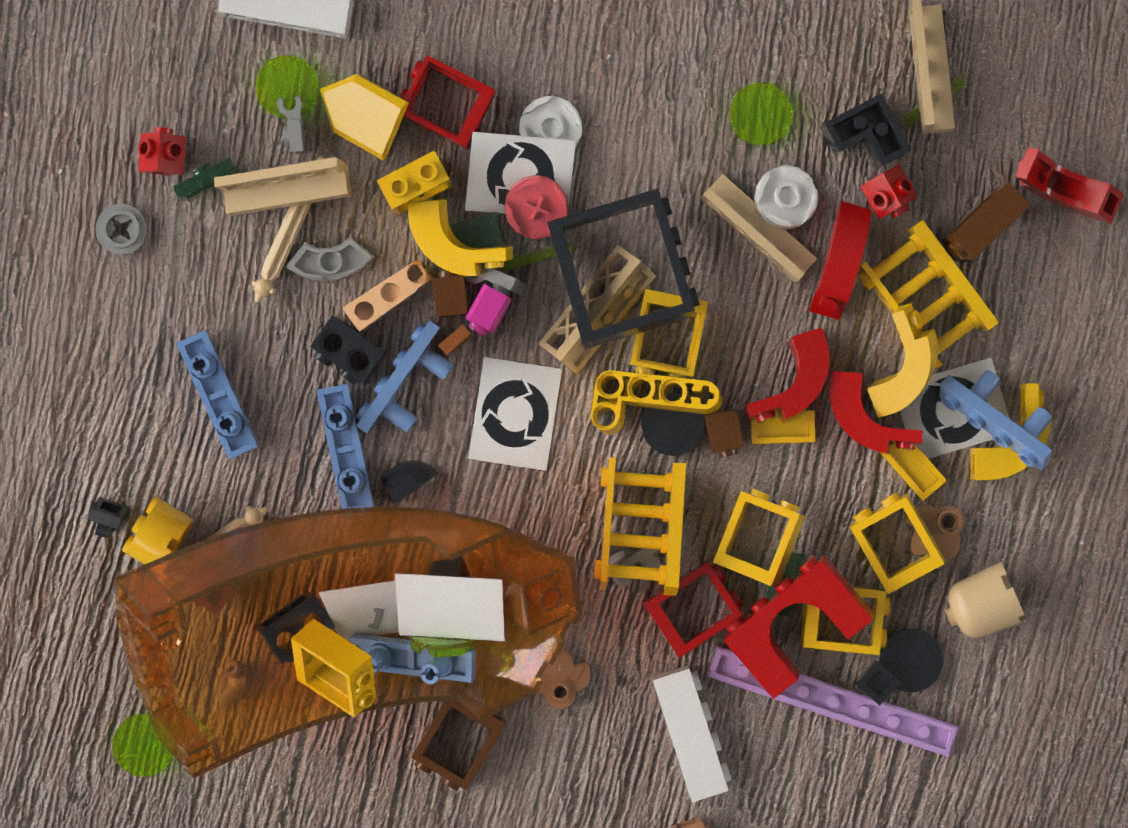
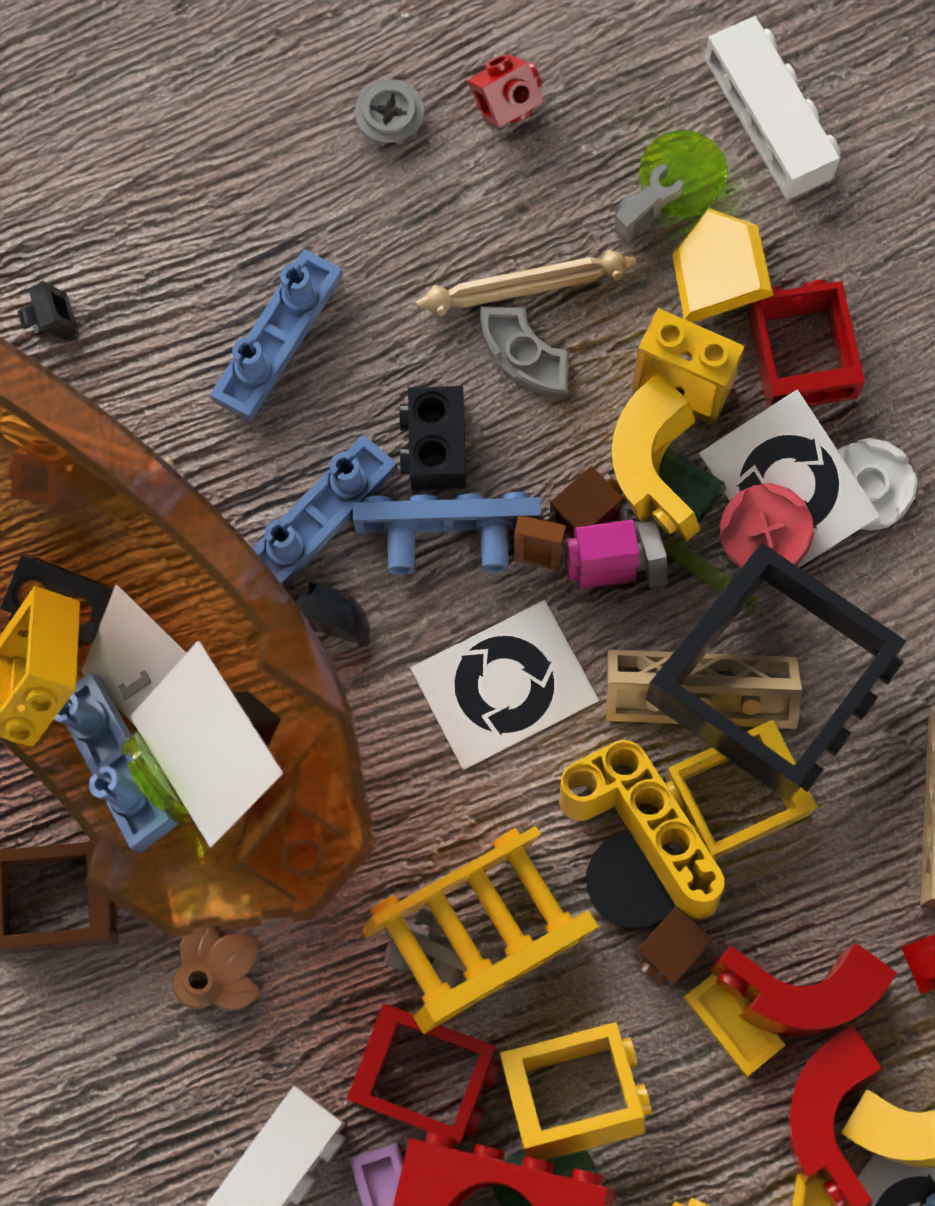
camera: 55 degrees right, 15 degrees down
(158, 532) = (76, 360): yellow brick -> none
(204, 178) = (513, 156): clear green plate -> none
(284, 186) = (573, 235): tan fence -> none
(386, 296) = (531, 435): light nougat leg -> none

